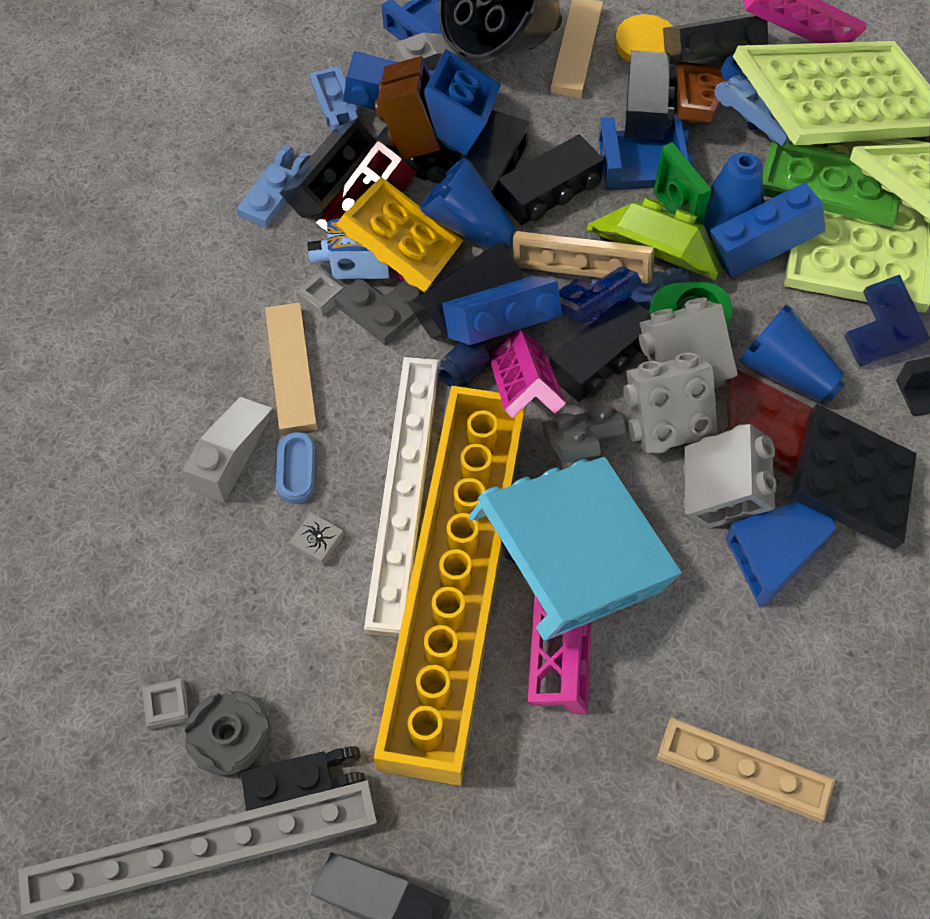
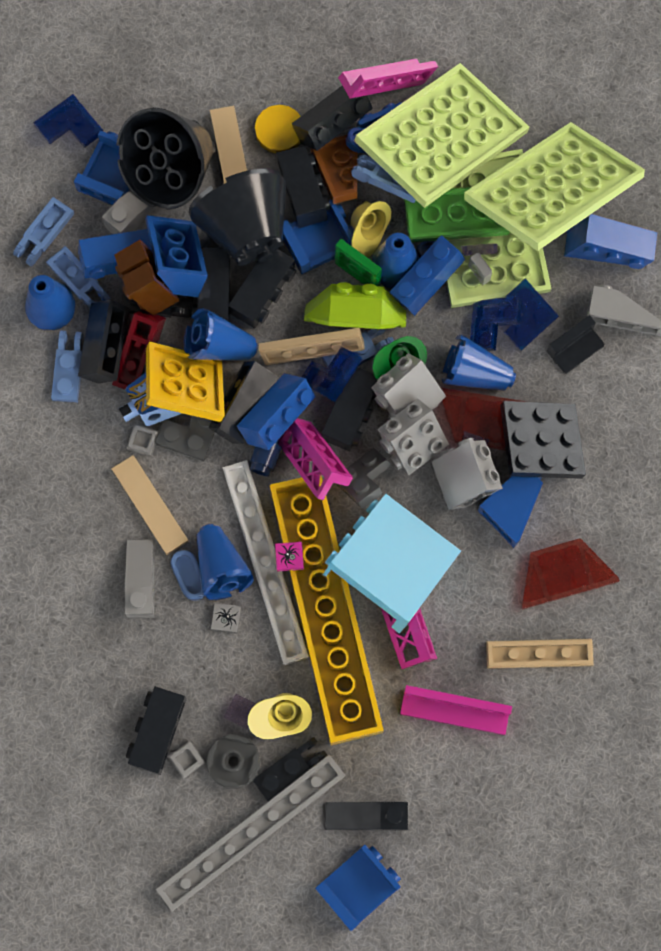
camera: 25 degrees left, 15 degrees up
(144, 644) = (156, 730): none -> black brick
(275, 670) = (239, 711): none -> clear purple tile
(286, 105) = (49, 303): none -> blue cone
(320, 693) = (279, 716): none -> light yellow piece
(322, 47) = (44, 230): none -> medium blue hinge
(340, 468) = (220, 564): none -> blue cone
(434, 479) = (289, 556): none -> dark pink tile
(562, 71) = (244, 214): none -> black cone
(585, 796) = (455, 710): none -> dark pink fence
(714, 149) = (369, 226): none -> light yellow piece
(824, 669) = (564, 572): none -> clear red wing
(841, 244) = (480, 268): none -> light grey tile
(841, 304) = (489, 315): none -> clear blue plate
(849, 222) = (470, 250): none -> tile

